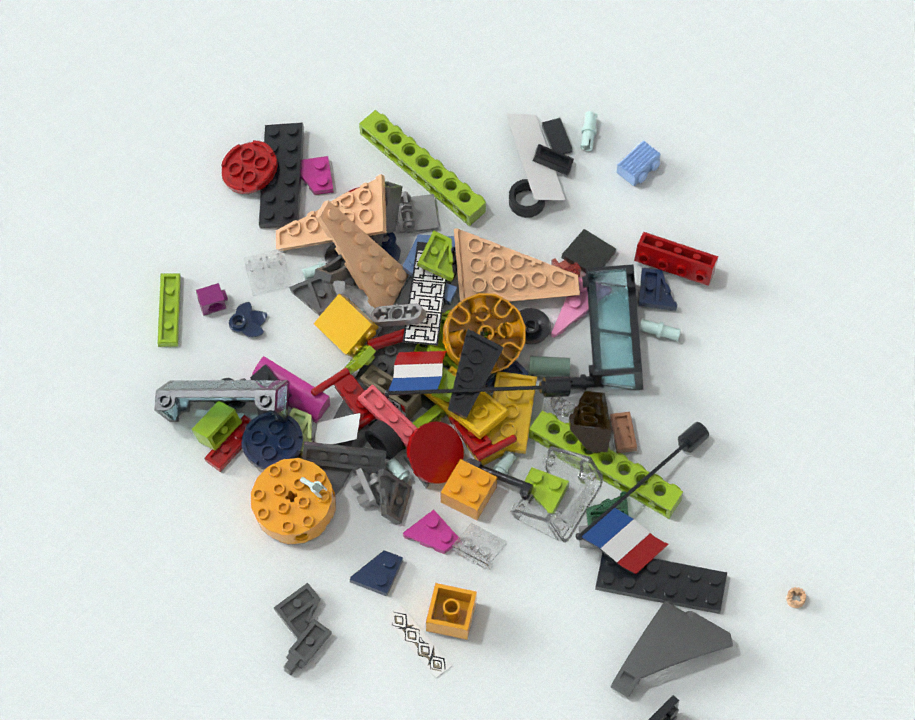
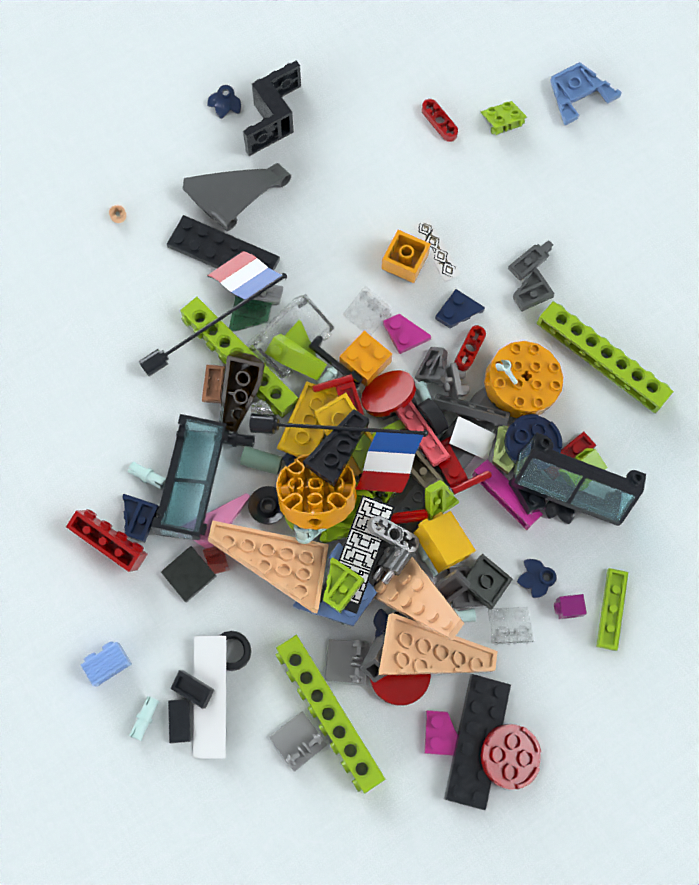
camera: 170 degrees left, 10 degrees up
(147, 515) = (606, 366): none -> lime brick
(298, 303) = (487, 581): none -> pearl dark grey tile
(366, 512) = (470, 354): none -> red beam
(391, 291) = (392, 562): none -> dark grey piece
(445, 142) = (298, 741): none -> light grey hinge
(549, 466) = (295, 357): none -> lime slope

